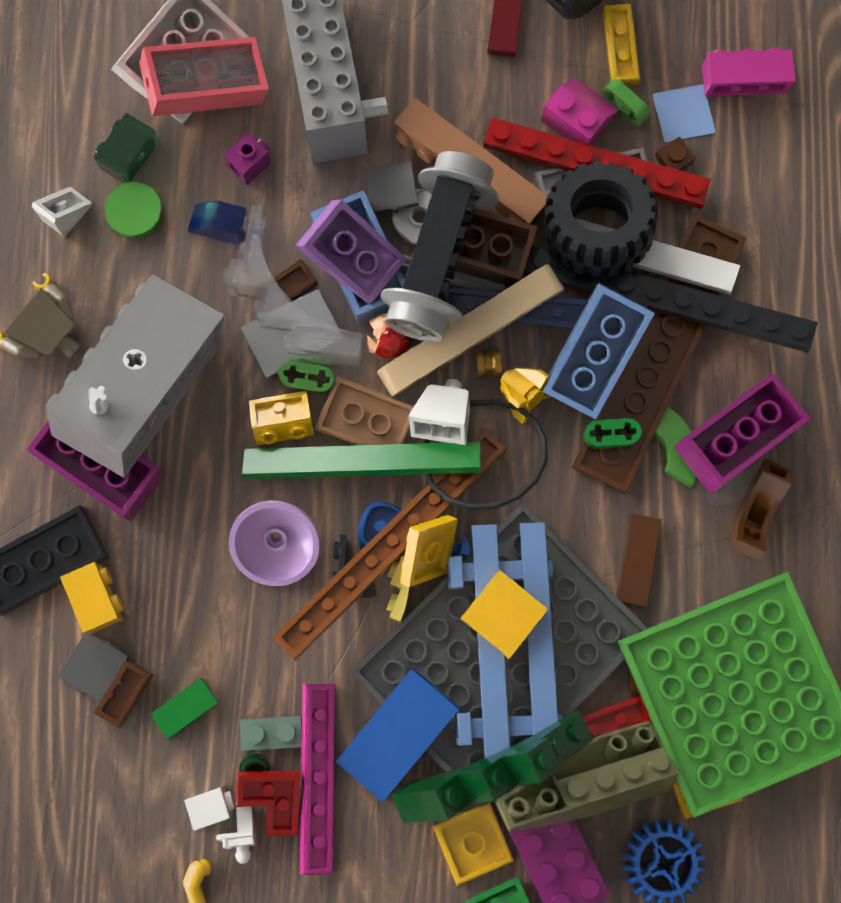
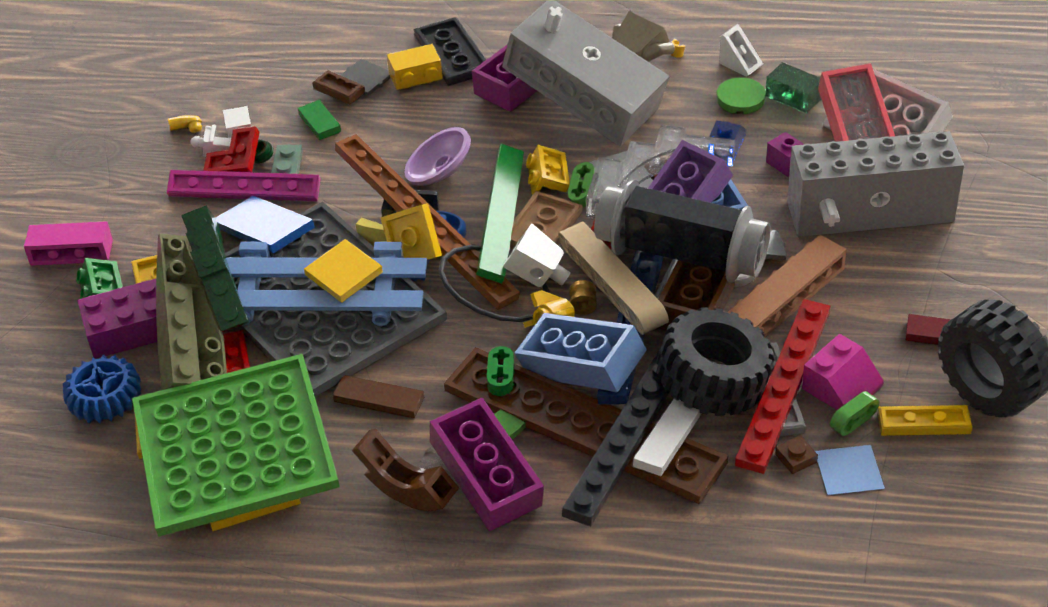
camera: 100 degrees right, 35 degrees down
(748, 72) = (896, 516): dark pink brick -> none

